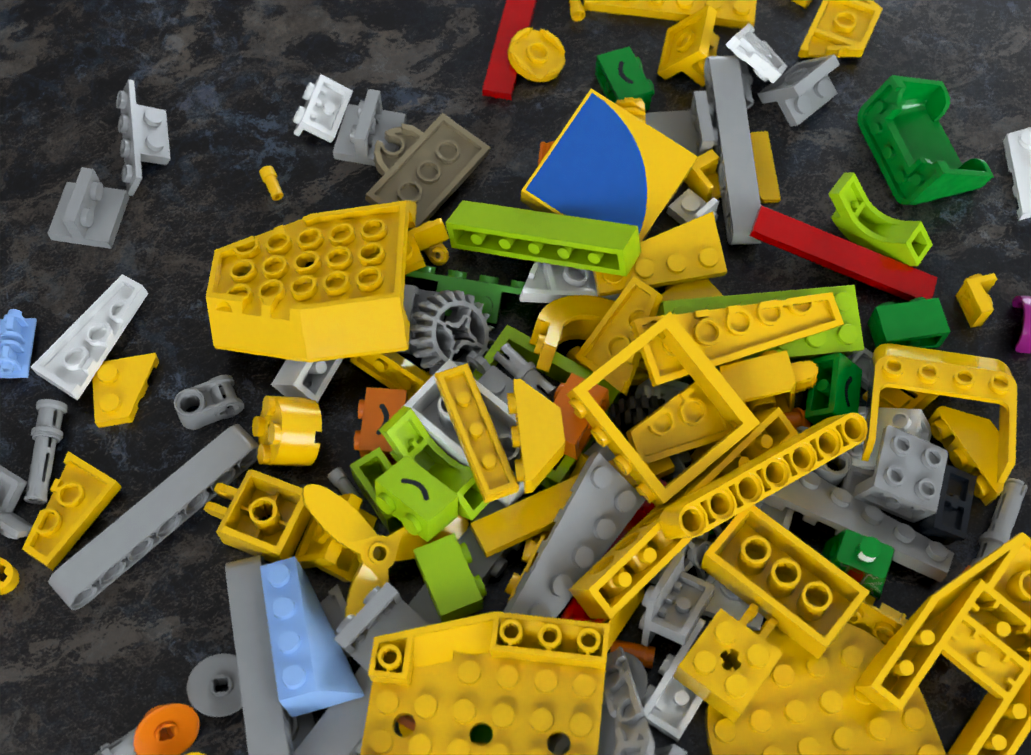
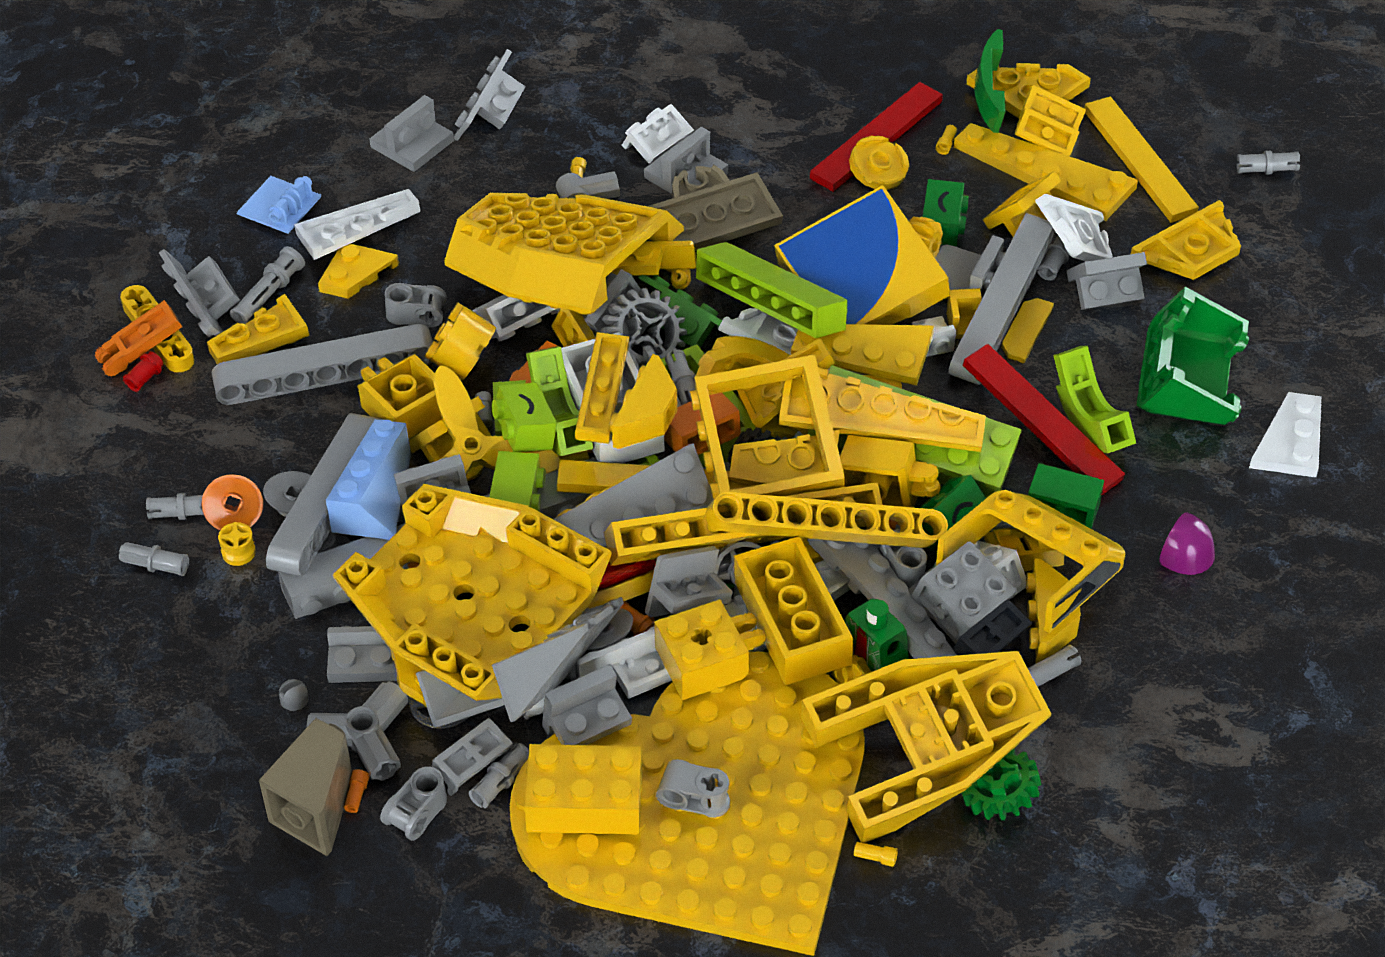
camera: 30 degrees right, 15 degrees down
(289, 203) = (599, 185): none -> light grey piece
(974, 298) = (1151, 497): yellow bracket -> none

